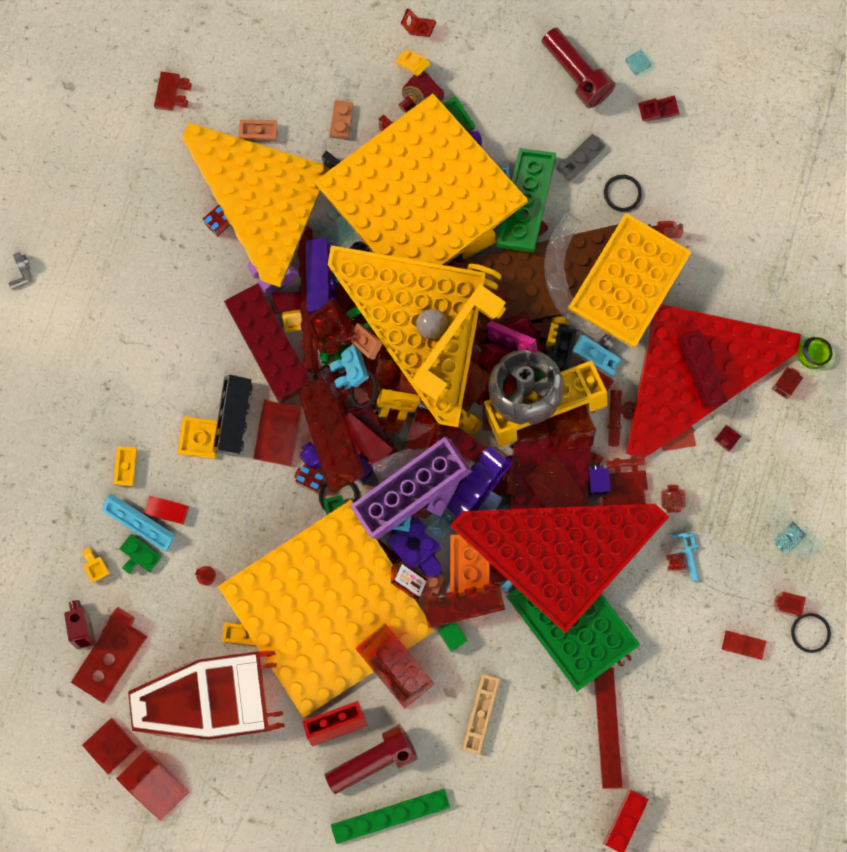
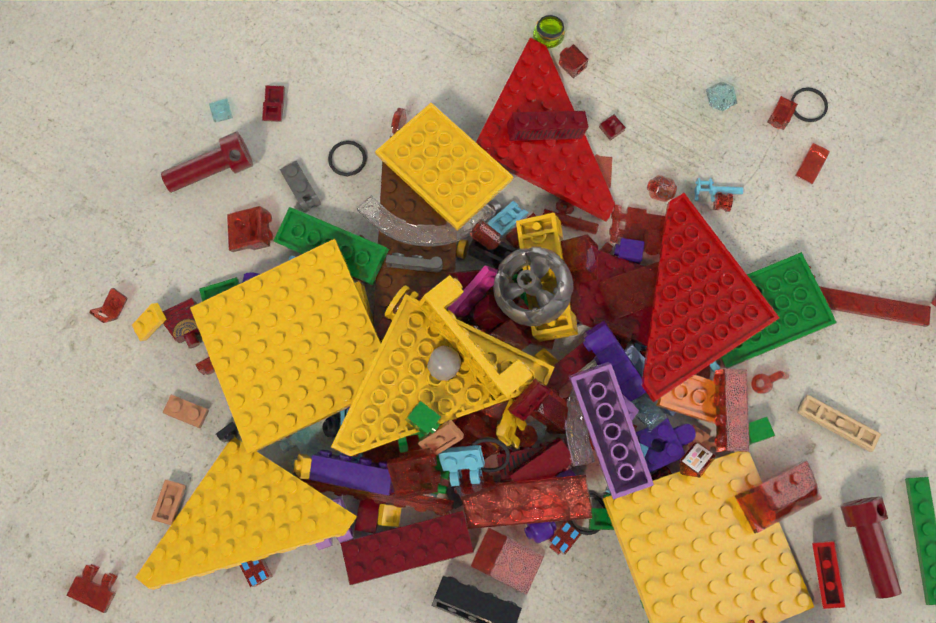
camera: 75 degrees left, 5 degrees down
(315, 232) = (302, 466): none -> yellow plate
(375, 318) = (423, 419): none -> green brick
(420, 410) = (529, 399): none -> dark red plate
(504, 638) = (768, 381): none -> clear red plate
(524, 123) = (249, 229): none -> clear red plate
(527, 280) = (417, 263): none -> dark grey plate
(542, 329) = (465, 264): dark red tile -> none
(551, 336) = (470, 252): yellow tile -> none
(570, 336) = (485, 235): none -> clear red brick

